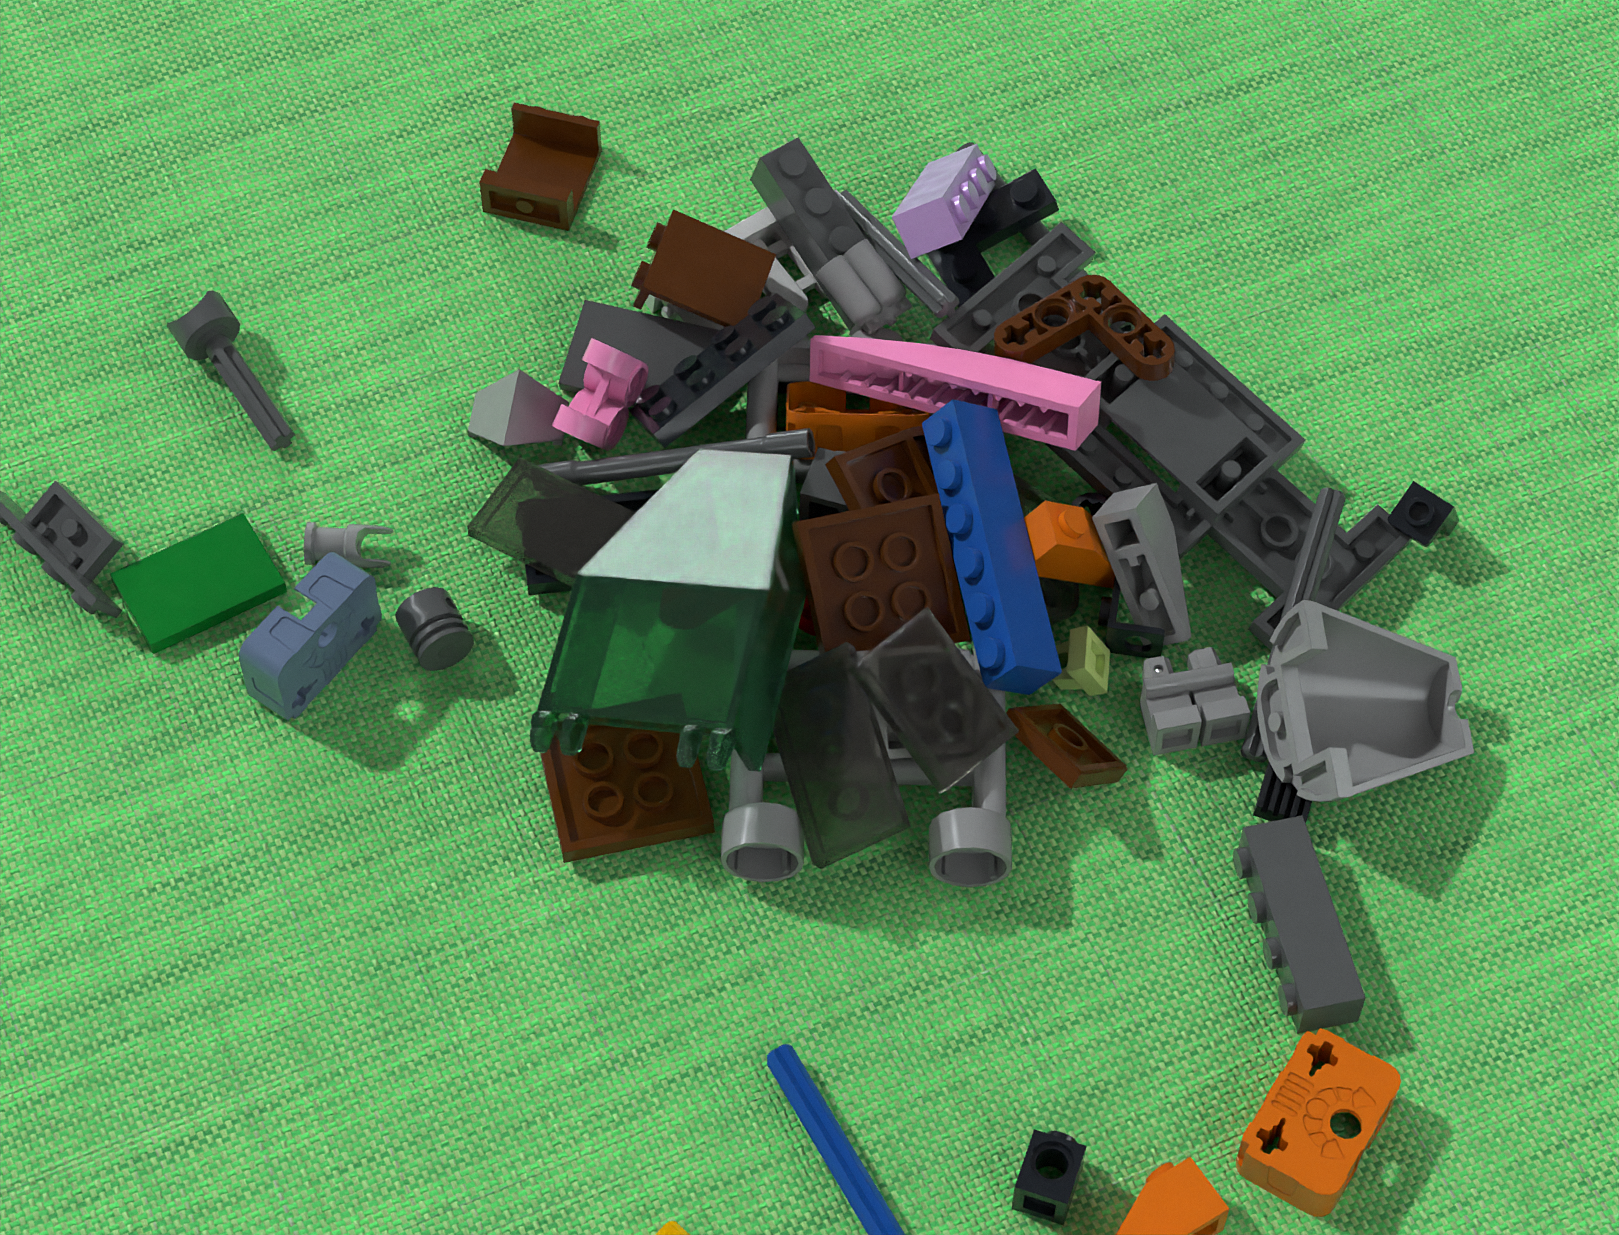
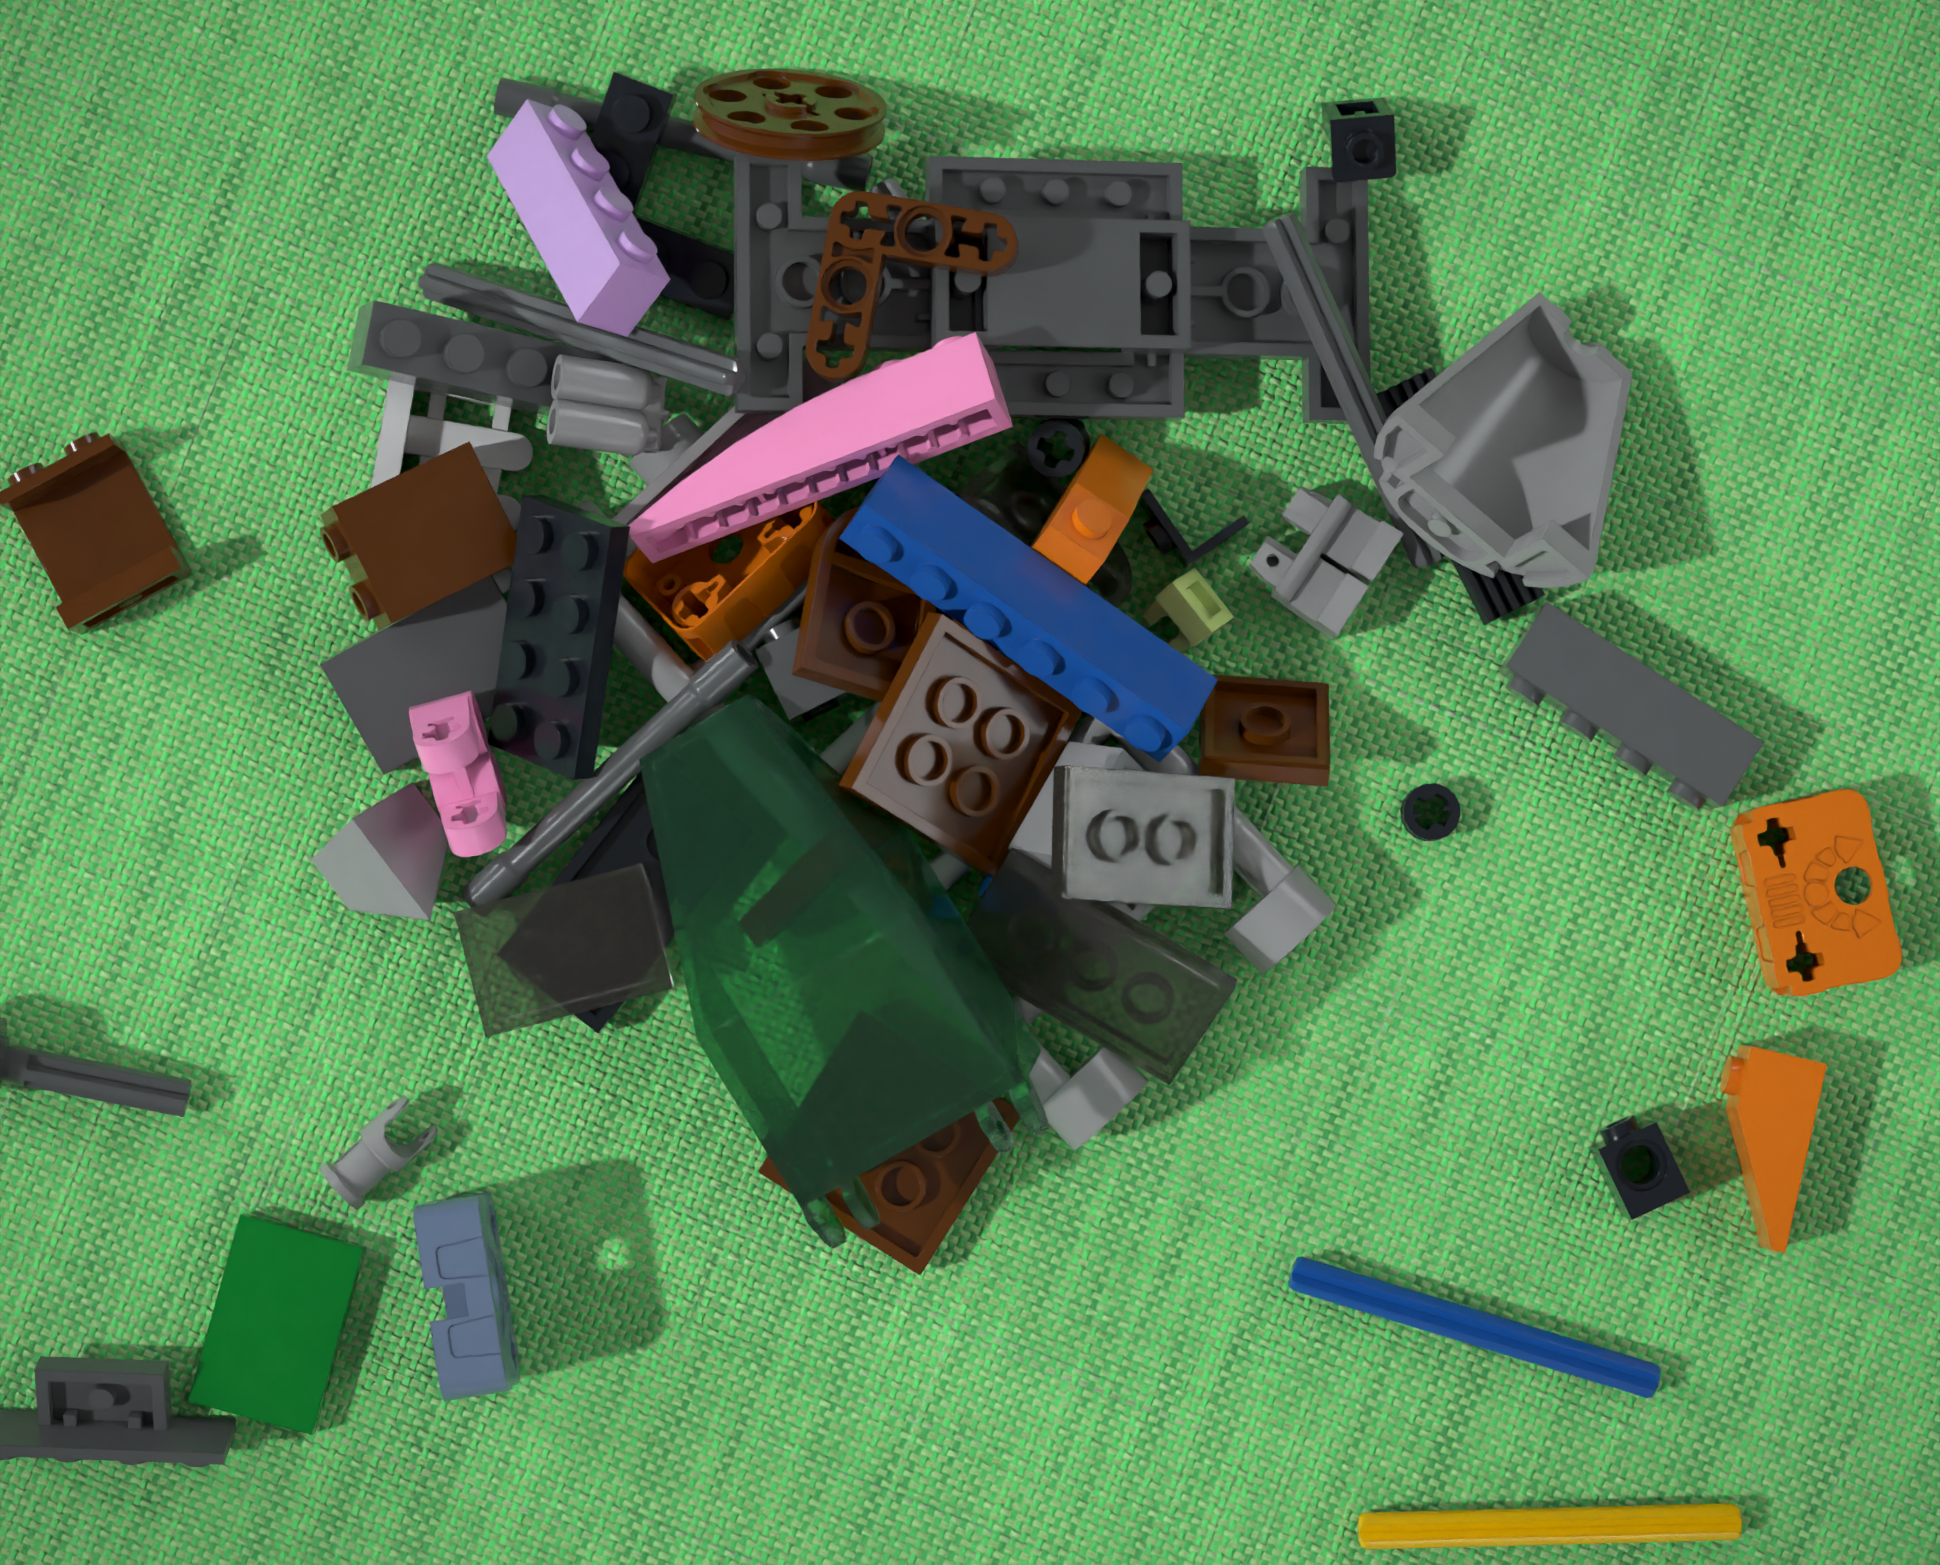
camera: 45 degrees left, 30 degrees up
(434, 629) = (561, 1164): dark grey piece -> none
(1109, 249) = (789, 114): none -> reddish brown wedge
(1128, 872) = (1435, 830): none -> black bush
(1145, 560) = (1161, 461): light grey slope -> none

